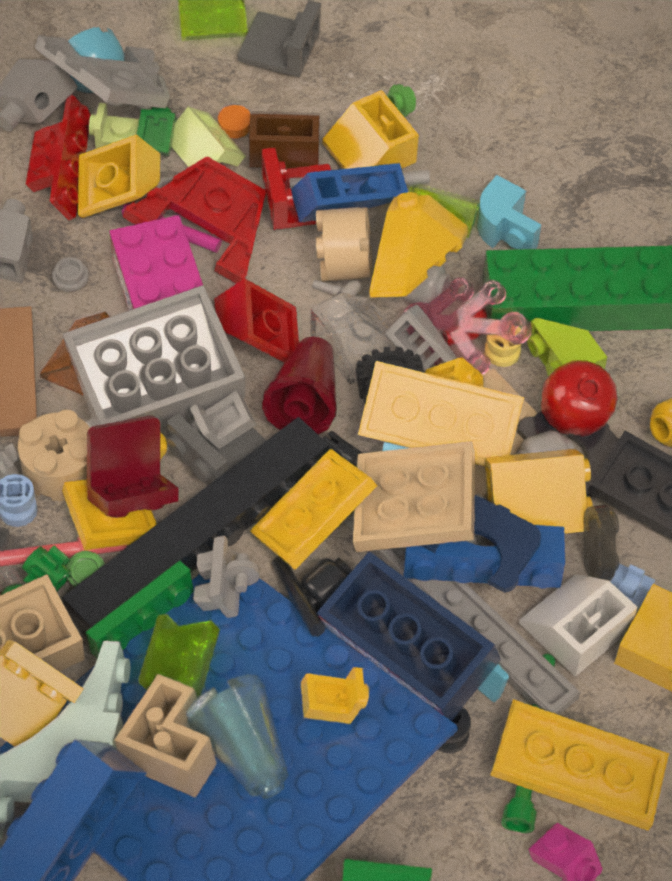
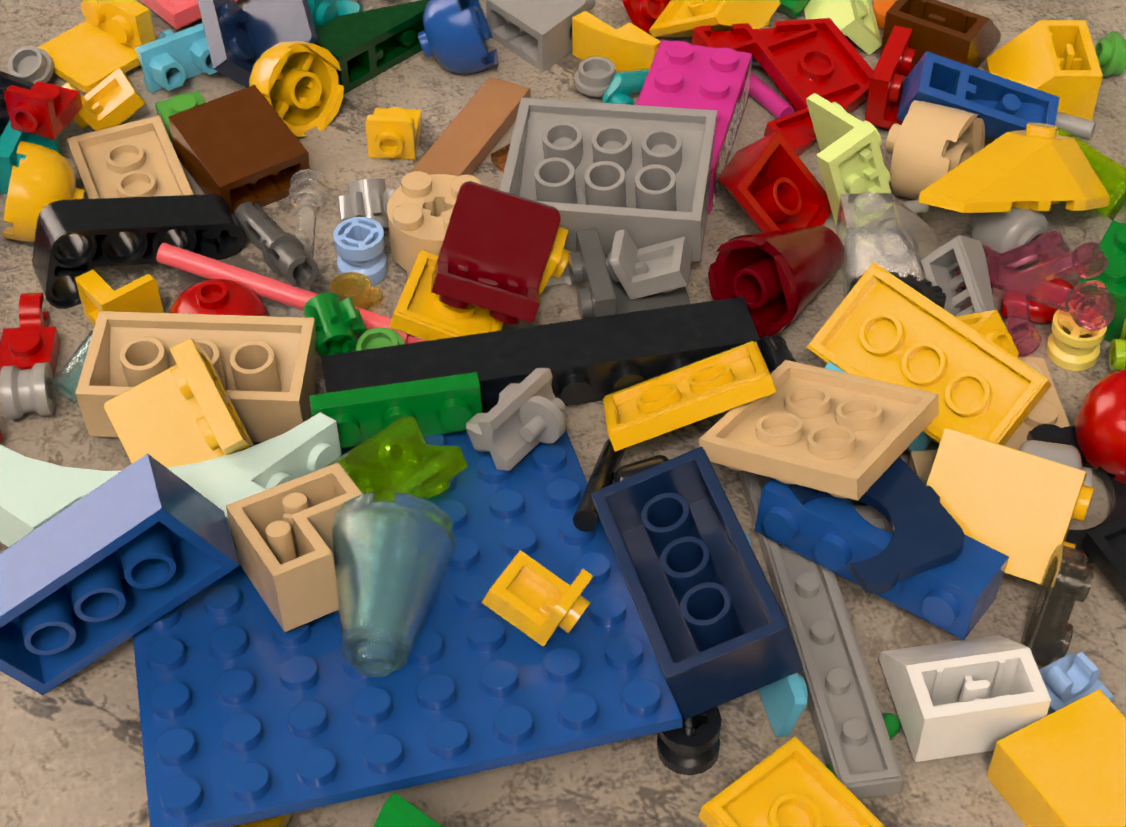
camera: 35 degrees right, 10 degrees down
(30, 528) = (358, 288): none -> clear yellow plate
(80, 242) = (626, 46): none -> yellow slope
(94, 277) = (623, 85): none -> teal arm
(300, 270) = (848, 152): none -> yellowish green bracket

